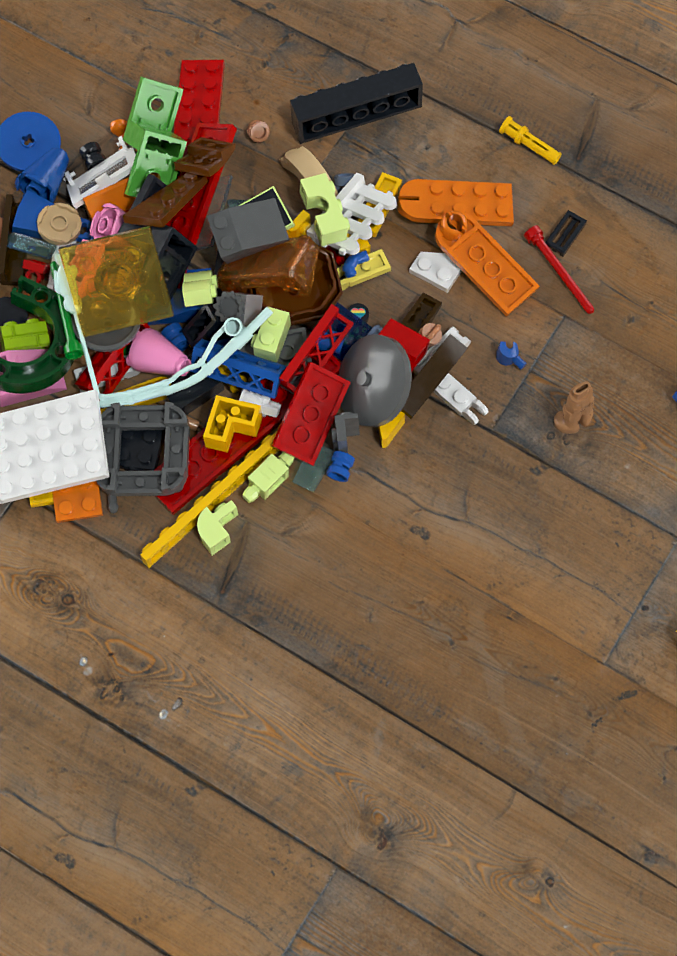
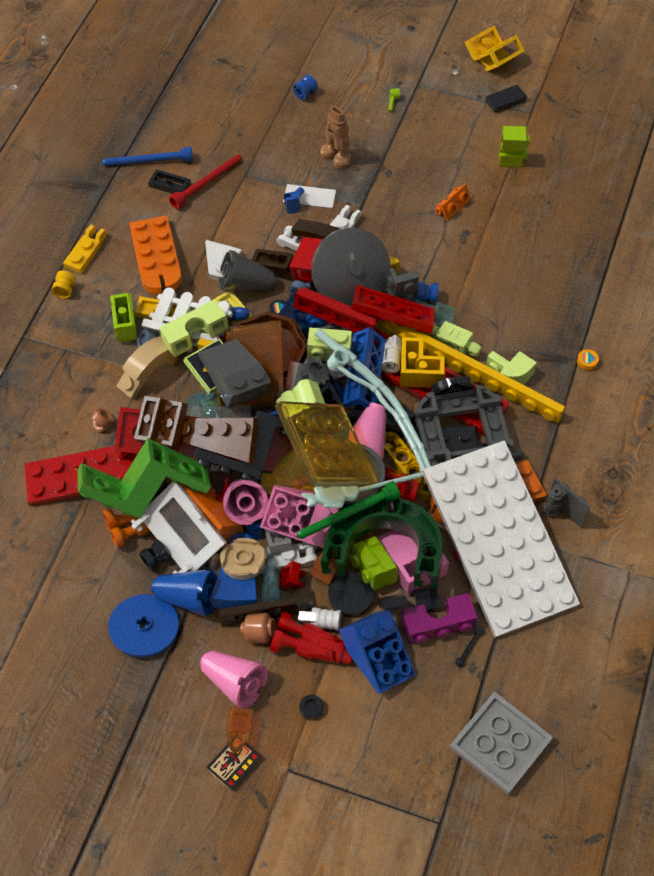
camera: 105 degrees left, 10 degrees down
(39, 526) = (566, 501): none -> dark grey hinge
(191, 447) = (453, 384): none -> black tile
(211, 614) = (587, 359): none -> light orange tile
(356, 103) = (66, 339): black brick -> none
(373, 159) = (123, 317): none -> lime brick
(400, 281) = (244, 274): none -> dark grey cone
(431, 332) = (290, 245): nougat tile -> none
(436, 111) = (63, 284): none -> yellow wheel
(463, 521) = (454, 202): none -> orange hinge
(484, 139) = (85, 250): none -> yellow hinge
(484, 261) = (211, 224): orange plate -> none
(516, 381) = (314, 196): none -> white sticker
(522, 135) = (79, 221): yellow pin -> none
(531, 610) = (513, 146): none -> lime brick
(603, 253) = (184, 154): none -> blue piece
(631, 636) = (506, 98): none -> black tile
(661, 500) = (394, 94): none -> lime hand

